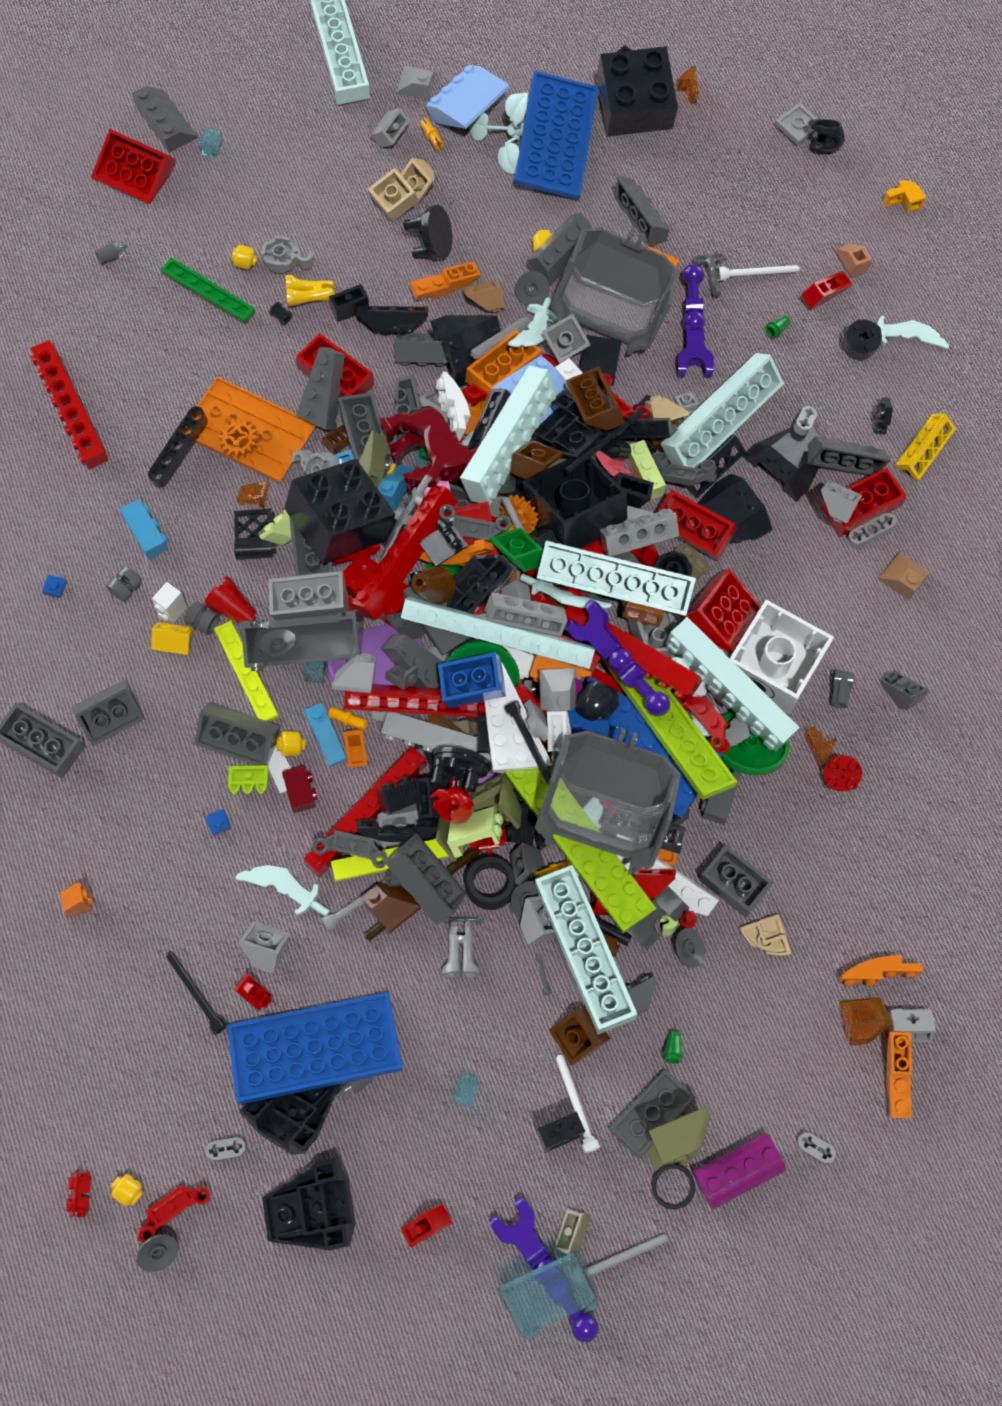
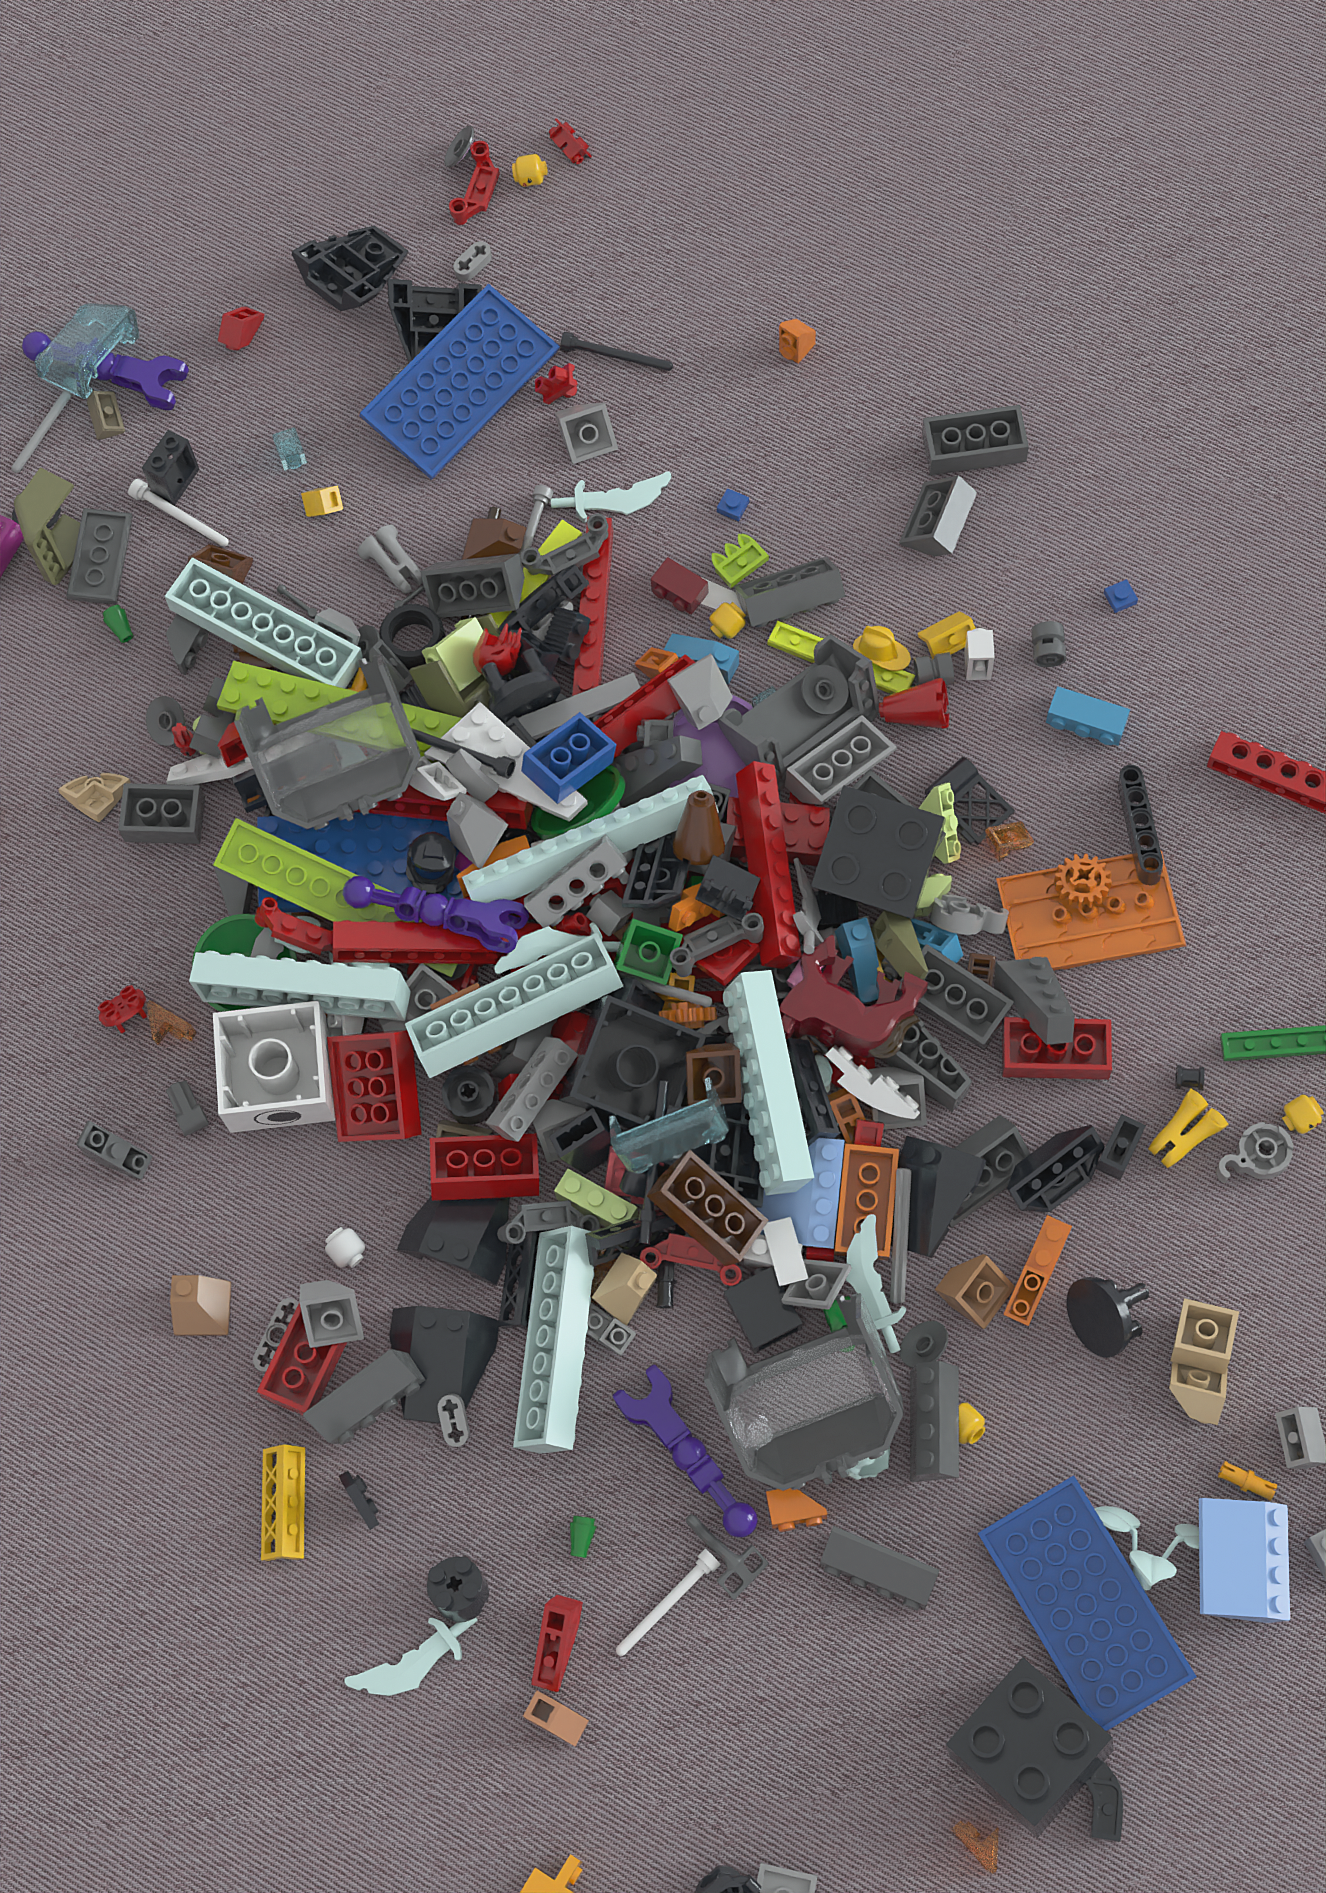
camera: 150 degrees right, 0 degrees up
(218, 657) = (882, 649): none -> yellow piece
(473, 1033) = (322, 501): none -> yellow panel
(568, 366) = (785, 1251): none -> white sticker
(610, 431) = (671, 1133): none -> clear light blue windscreen
(802, 544) = (345, 1247): none -> white head

